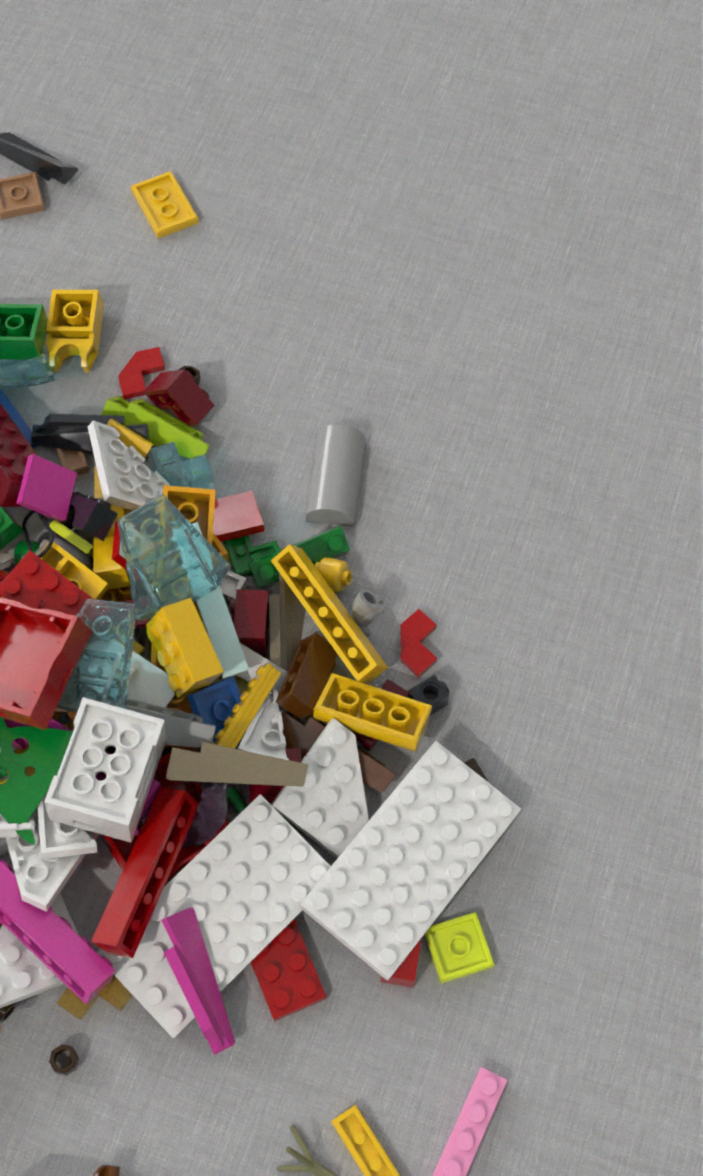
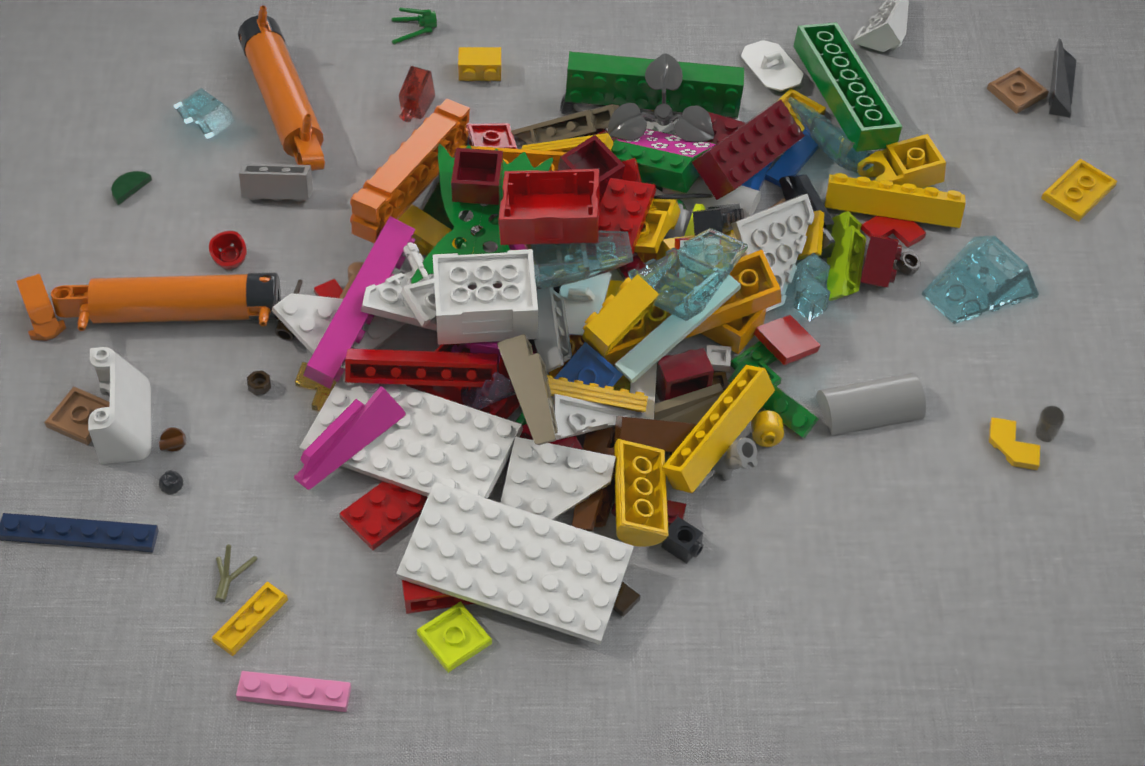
camera: 70 degrees right, 10 degrees down
(46, 488) = (723, 182): dark pink tile -> none
(112, 355) = (895, 200): none -> yellow brick
(232, 329) = (980, 280): none -> clear light blue wedge
(413, 389) = (1018, 454): none -> yellow tile
(413, 652) = (742, 512): red tile -> none
(419, 346) = (1049, 423): none -> clear smoke piece

